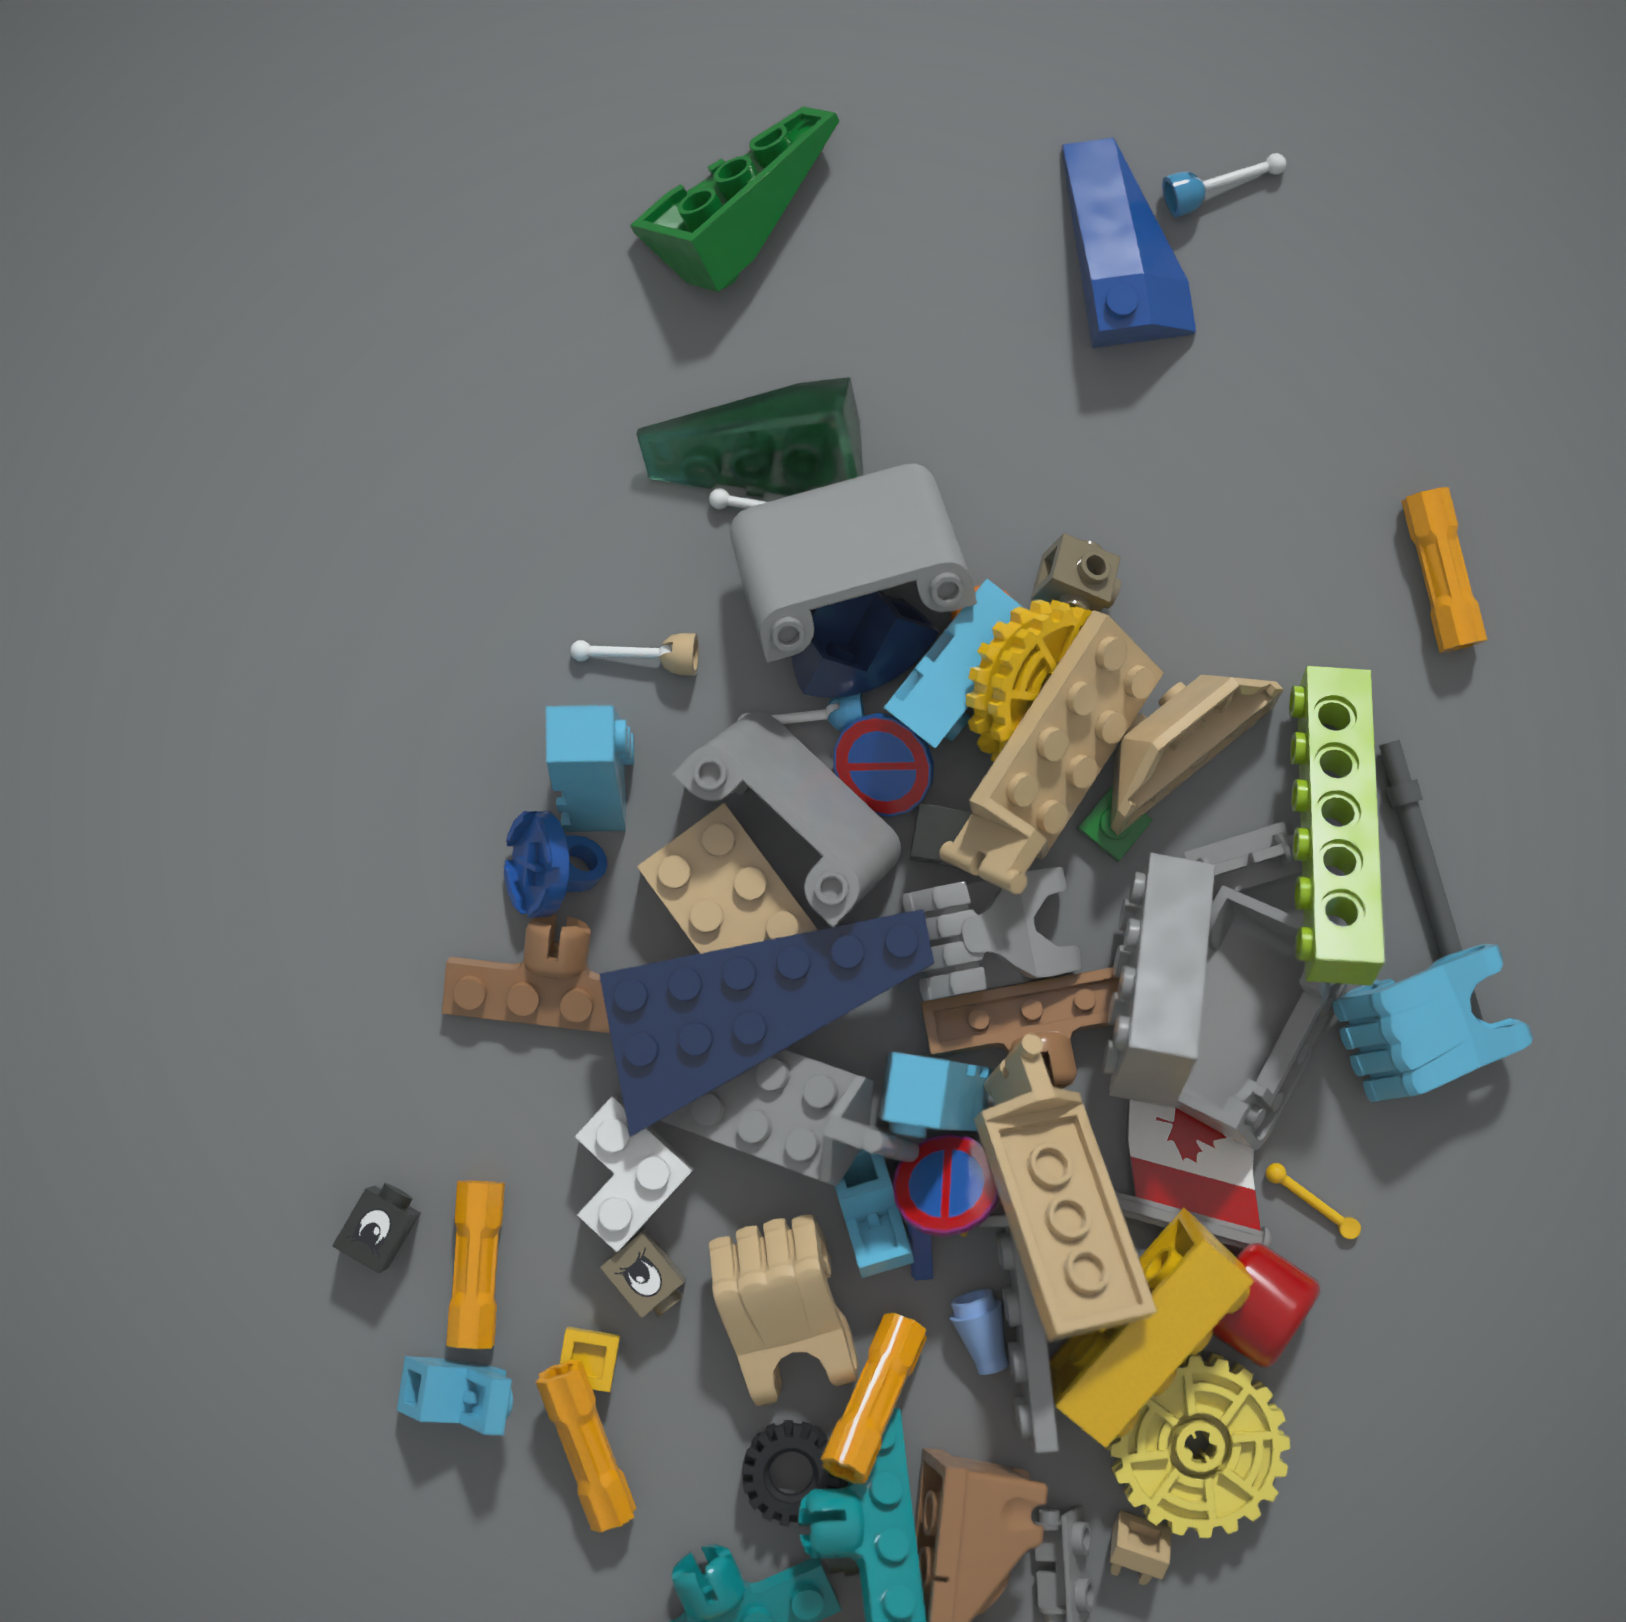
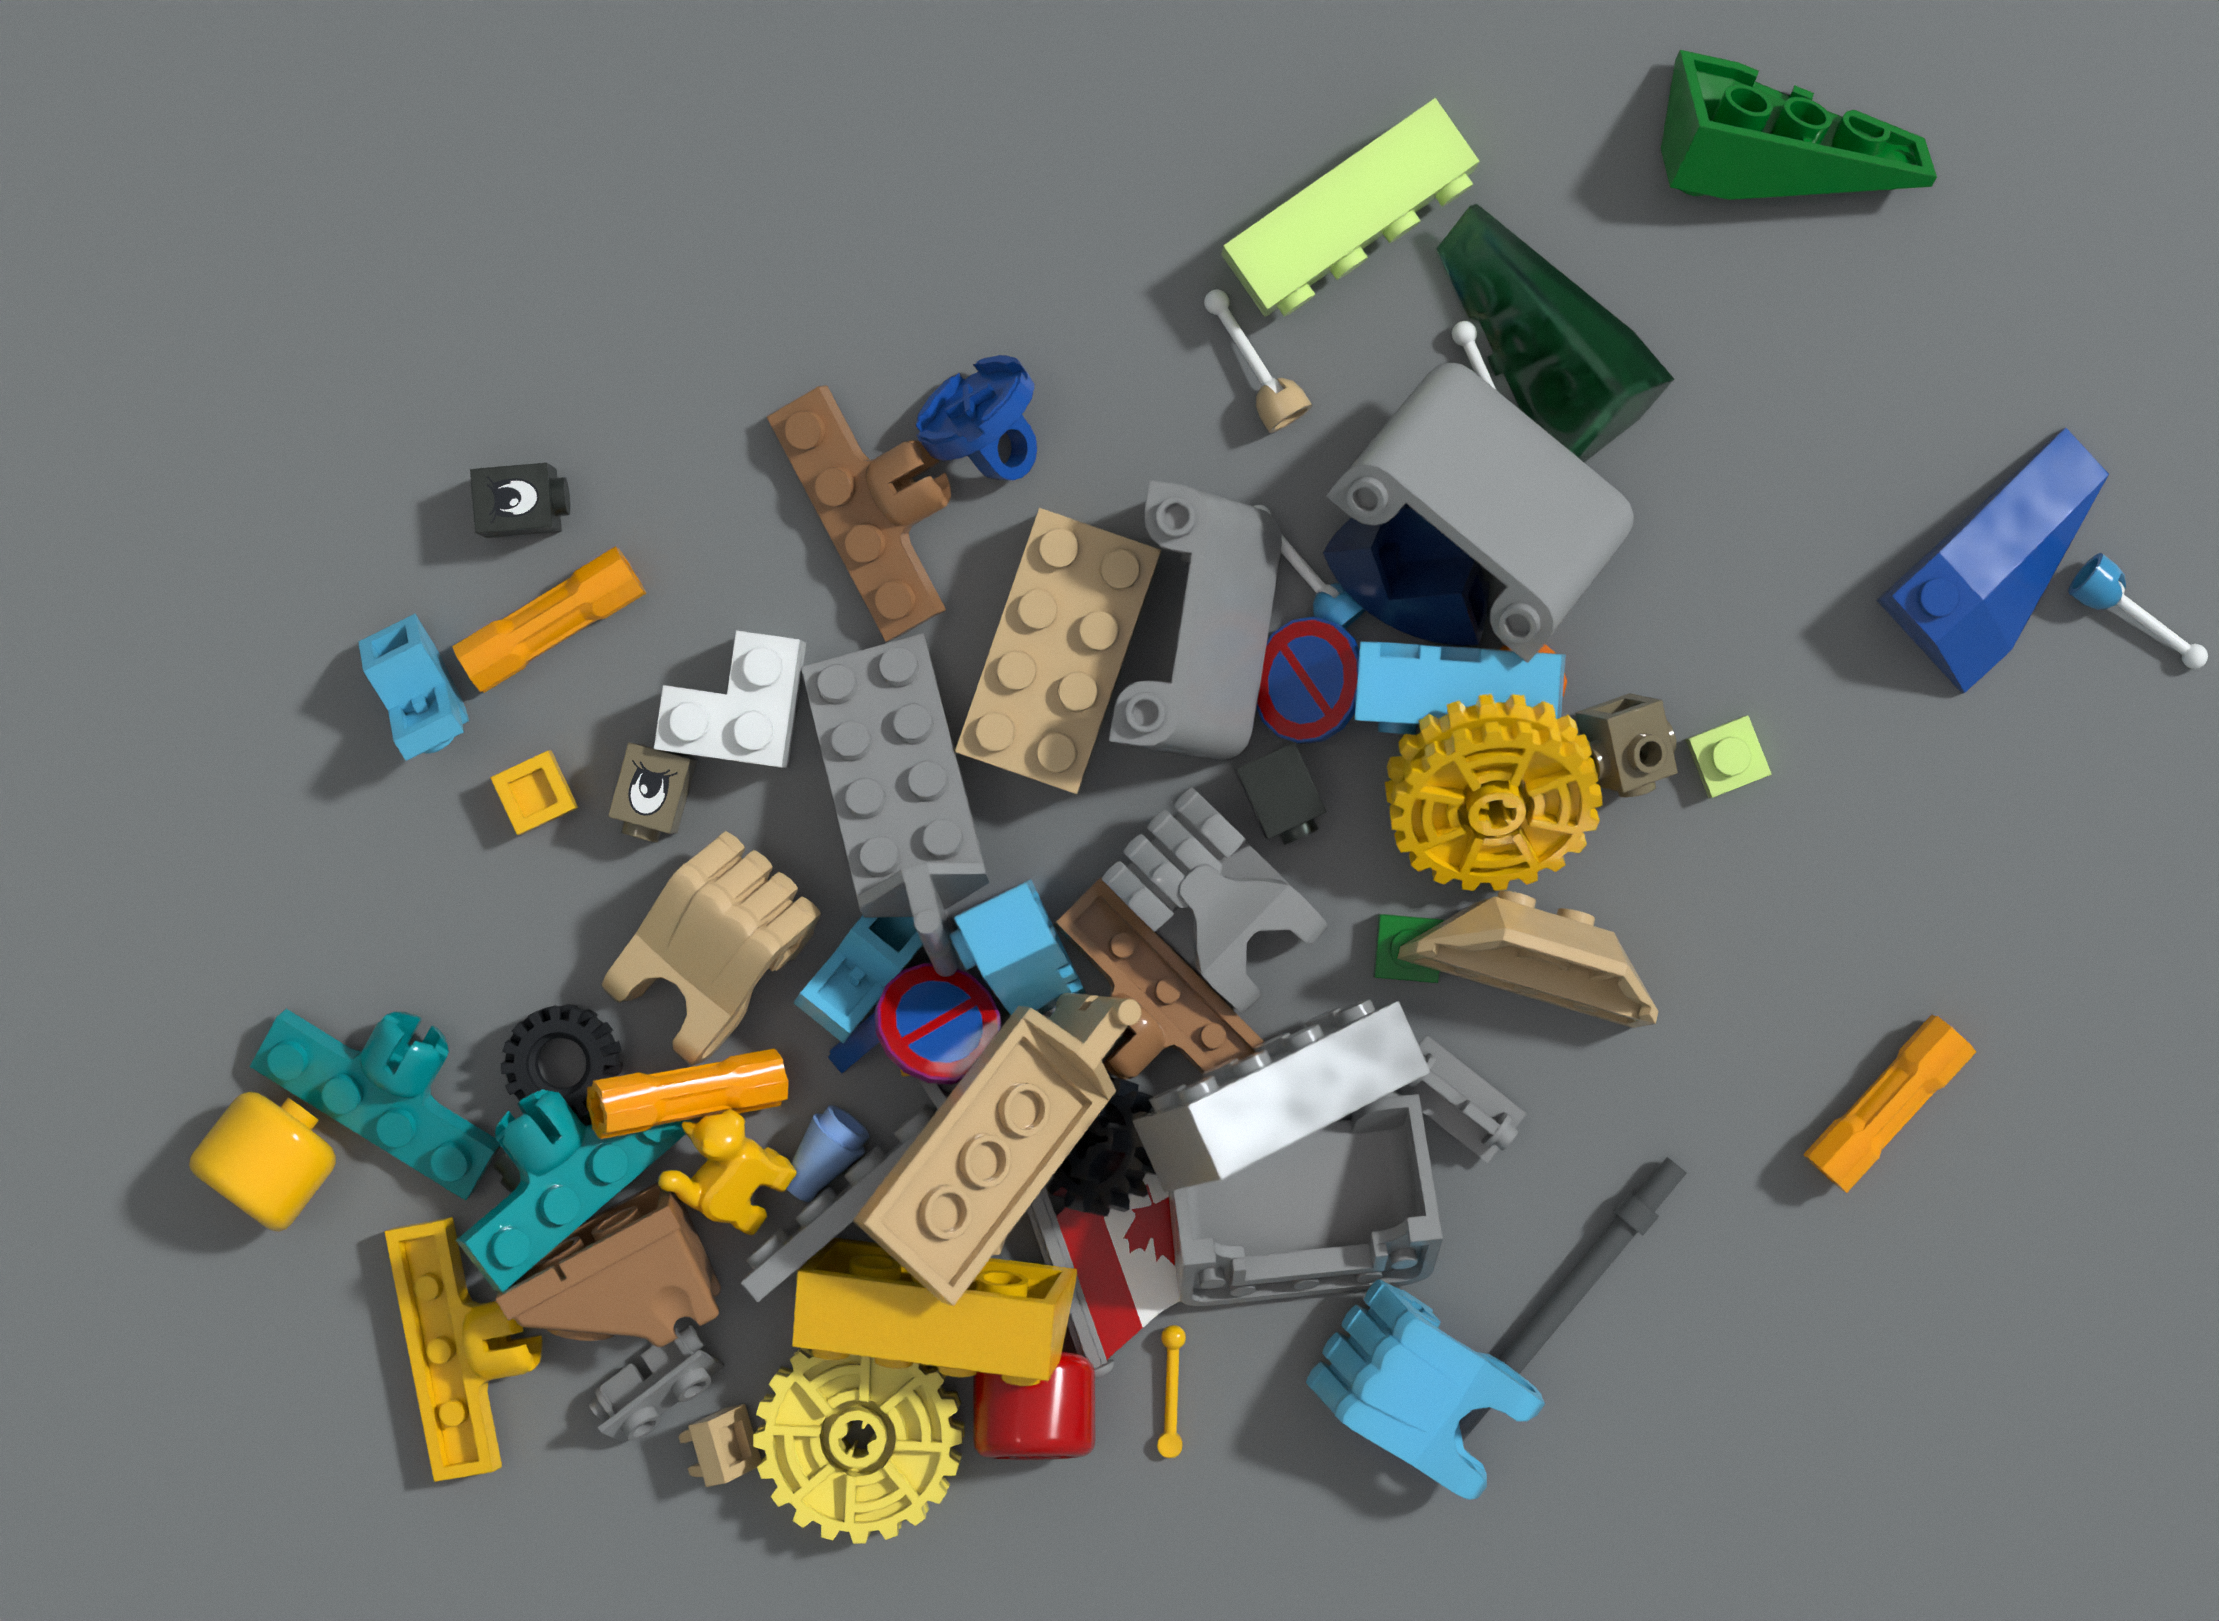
camera: 60 degrees right, 5 degrees up
(582, 515) = (1350, 209): none -> yellowish green brick
(587, 764) = (1104, 391): medium azure wedge -> none
(599, 1479) = (475, 810): light orange axle -> none
(719, 1012) = (953, 690): dark blue wing -> none
(952, 1407) = (730, 1174): none -> yellow animal
(1054, 755) = (1430, 841): tan hinge -> none
(1122, 1130) = (1108, 1157): none -> black gear
(1131, 518) = (1728, 756): none -> yellowish green plate
(1331, 951) = (1685, 1092): lime brick -> none

